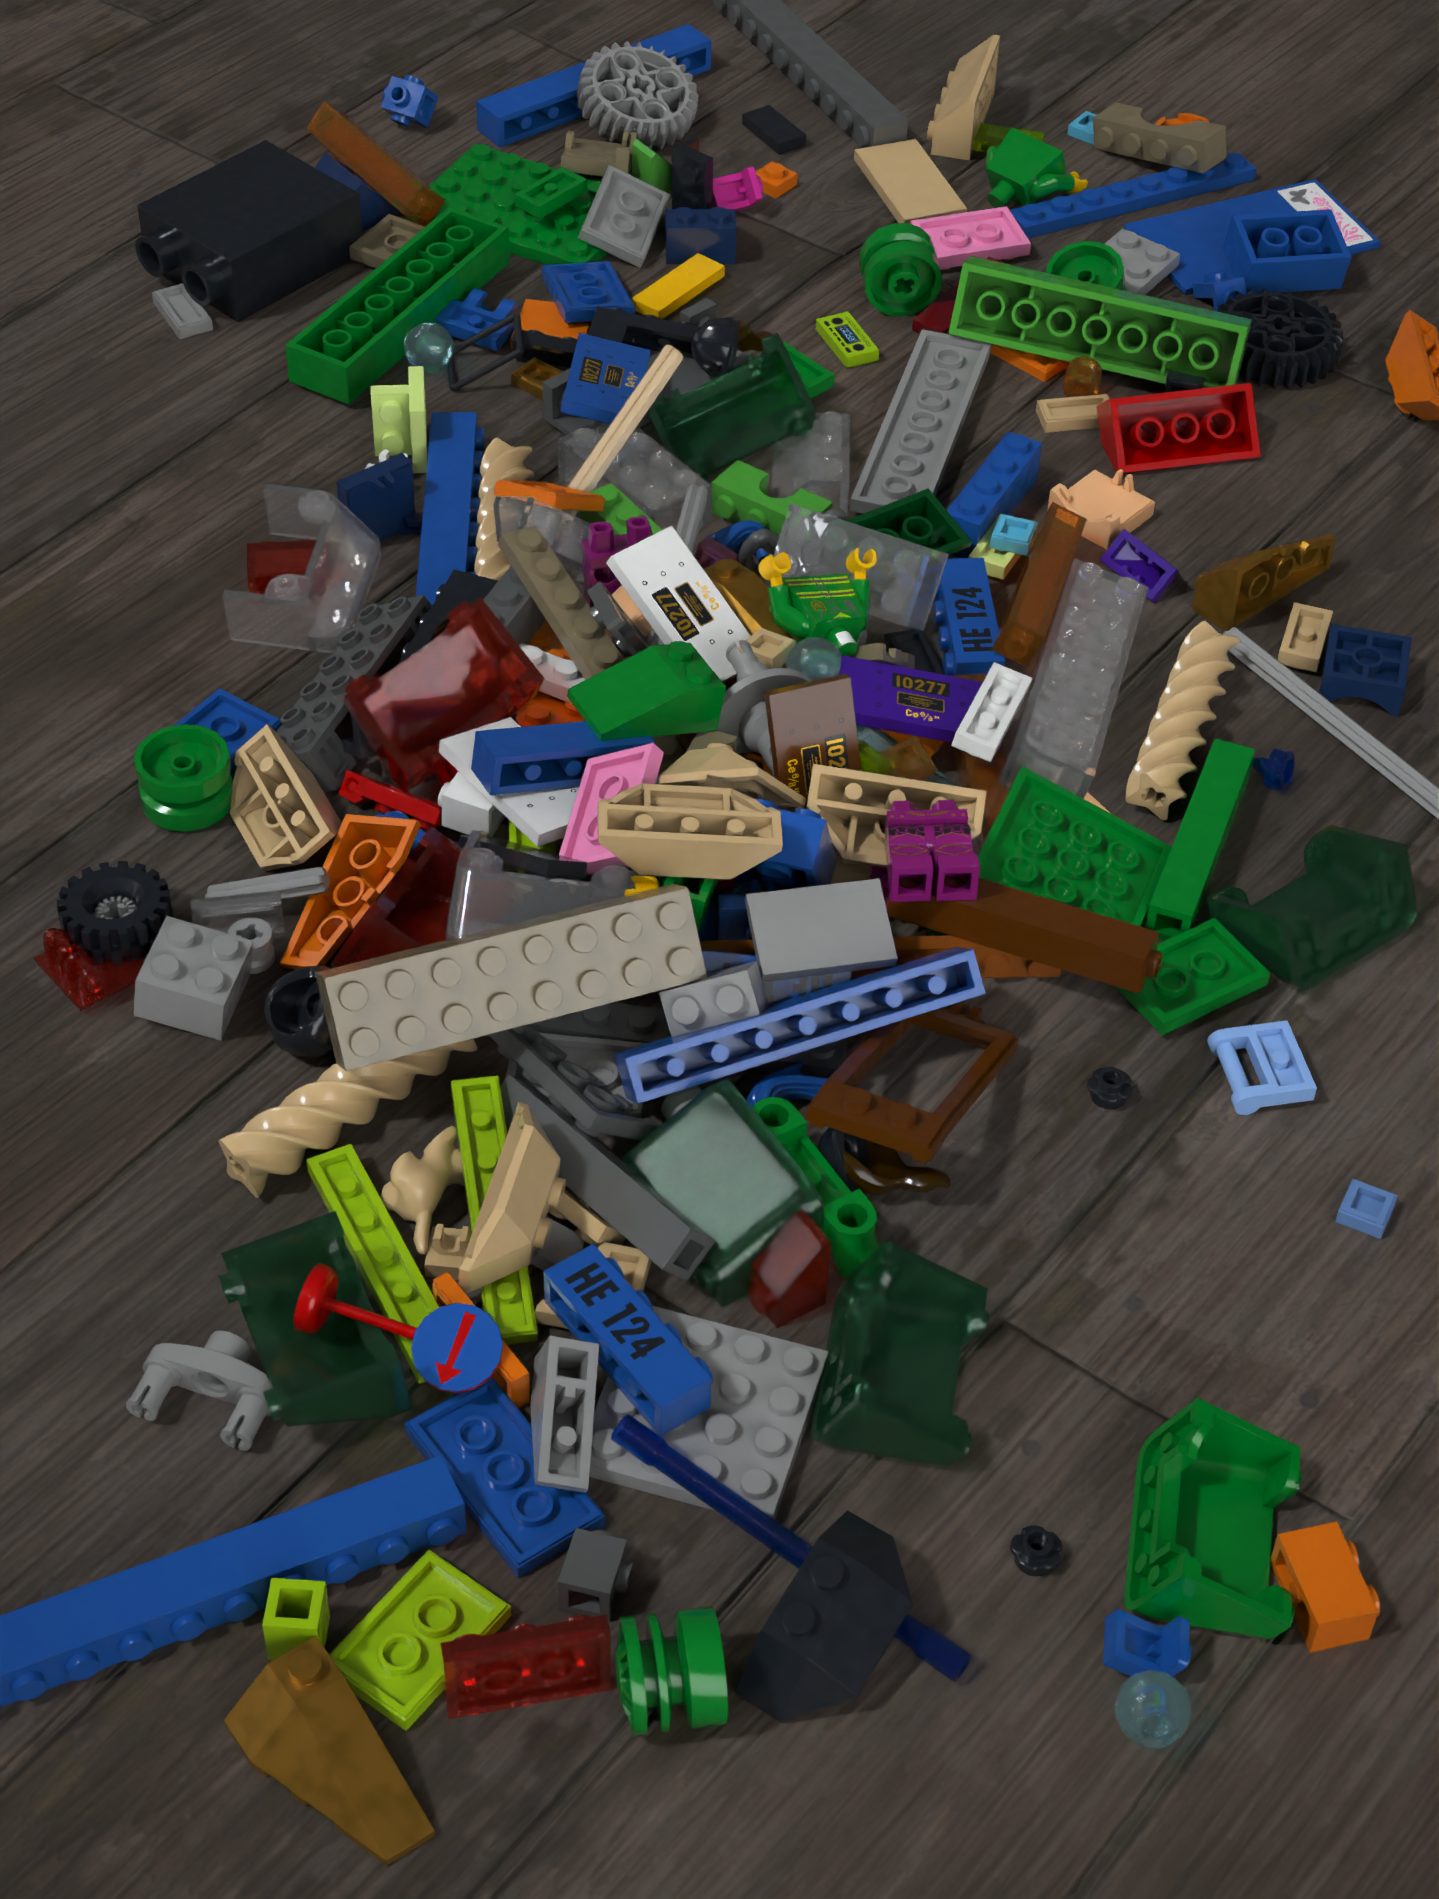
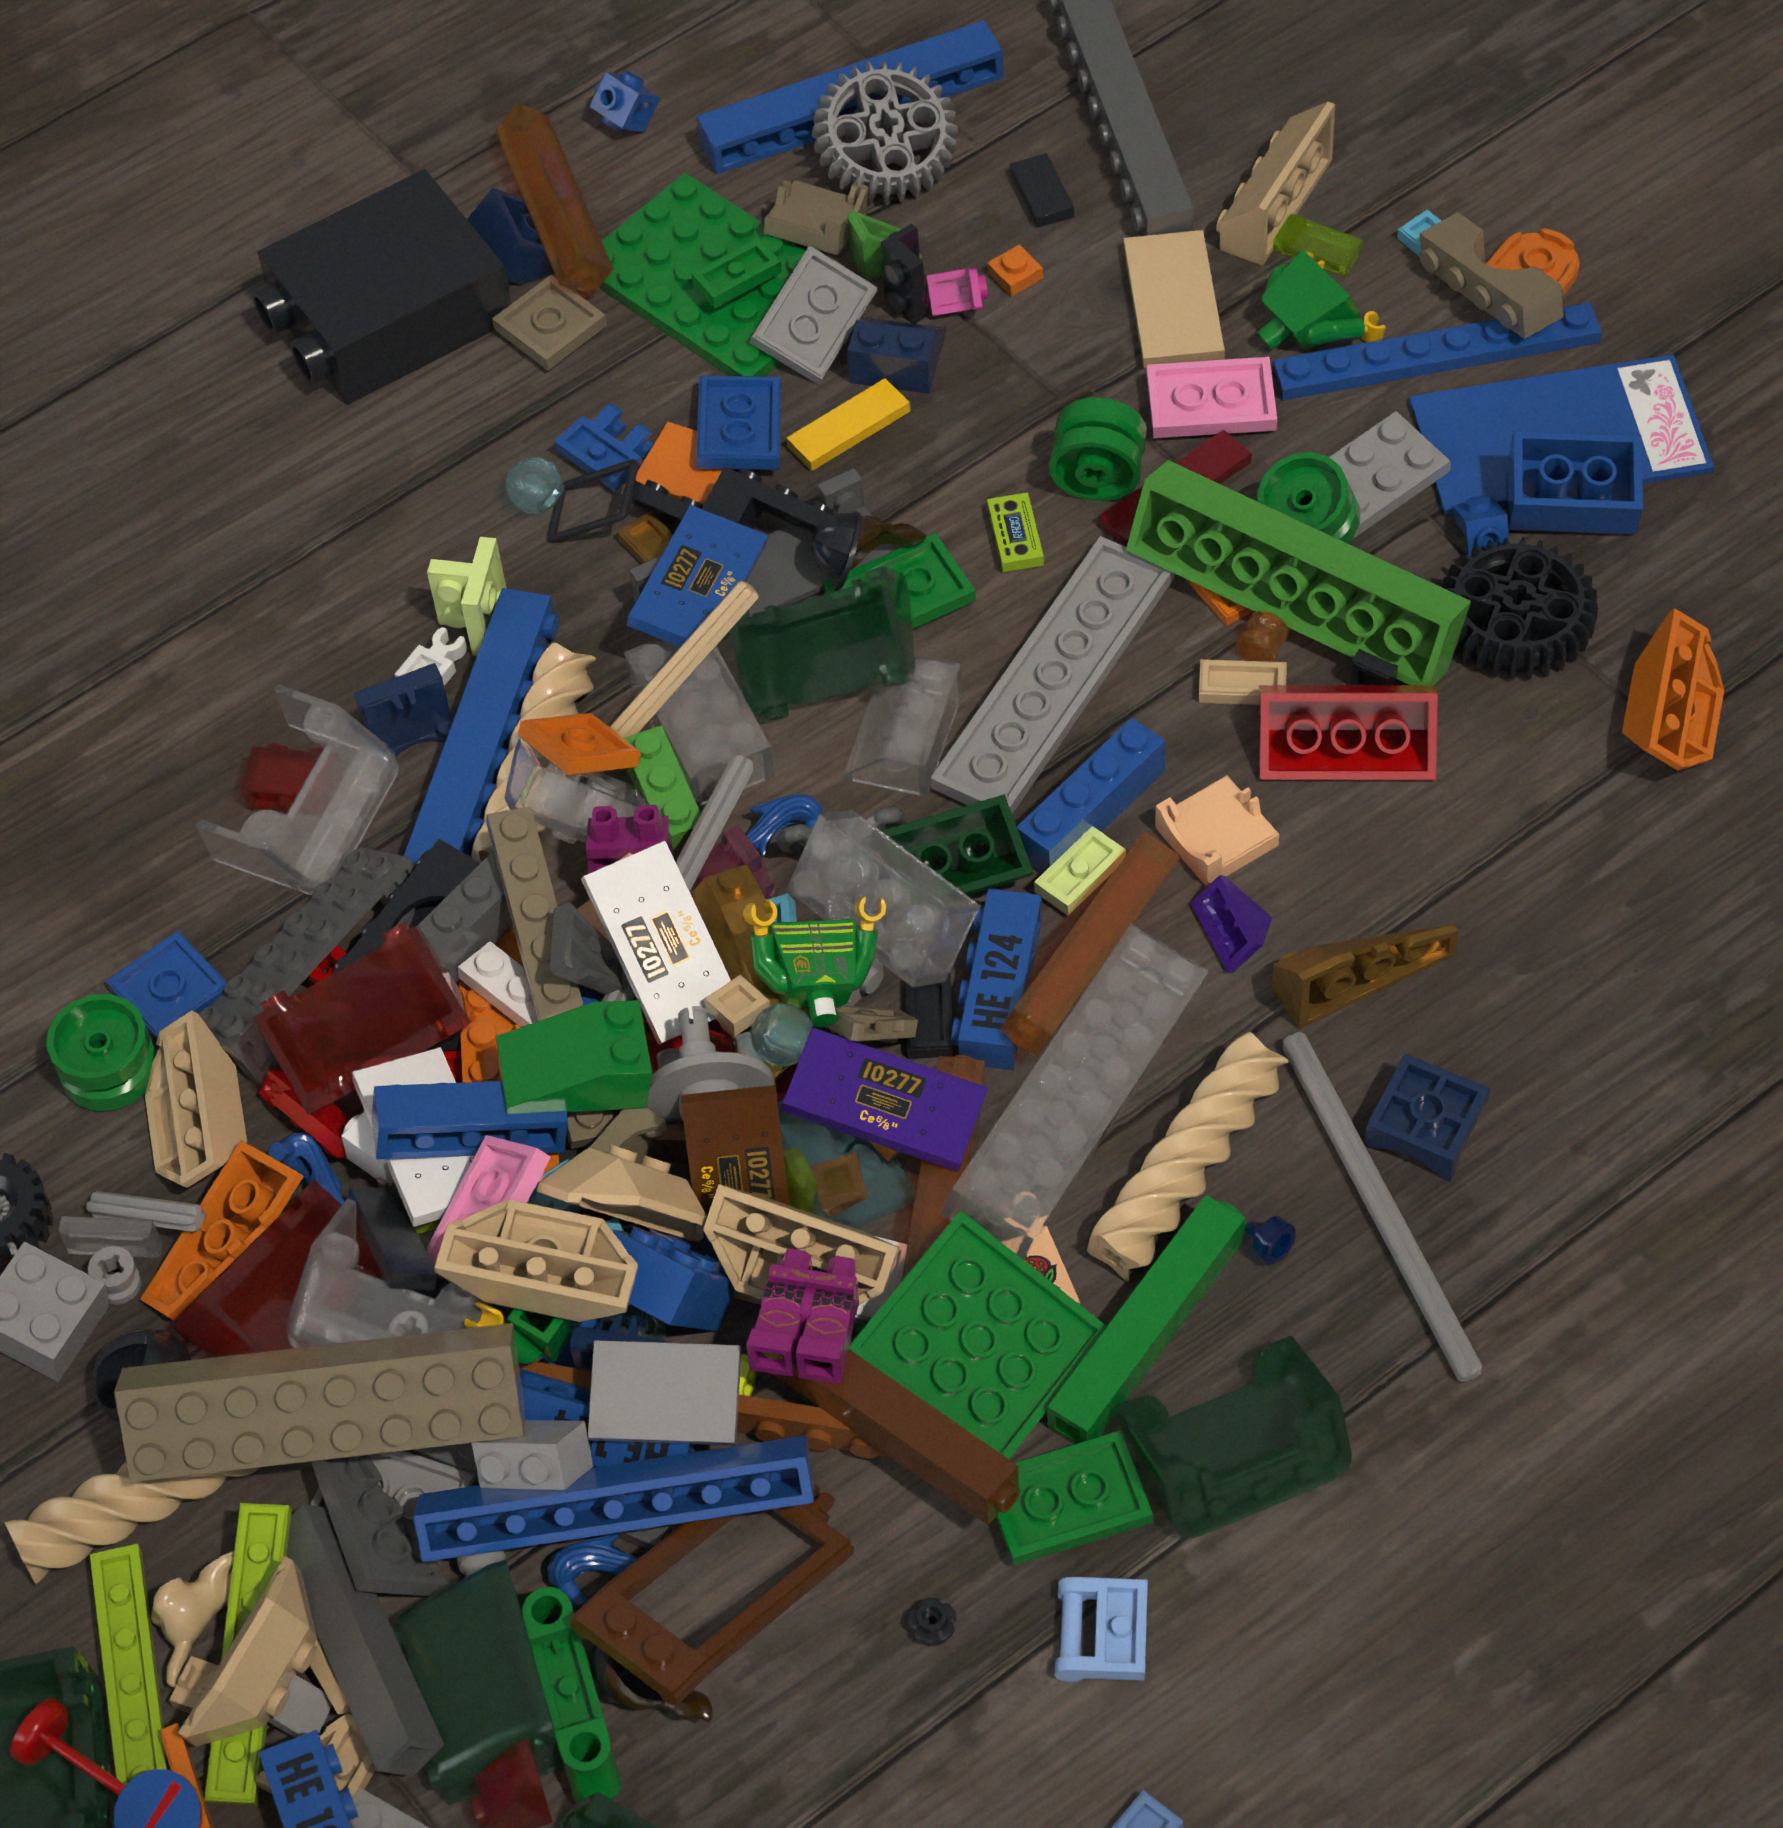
camera: 20 degrees right, 10 degrees up
(182, 311) = (288, 387): light grey tile -> none
(369, 324) = (516, 415): green brick -> none
(743, 496) = (810, 755): bright green arch -> none
(991, 712) = (953, 1131): white plate -> none
(1013, 534) = (1091, 862): medium azure tile -> none
(1305, 637) = (1377, 1057): tan plate -> none

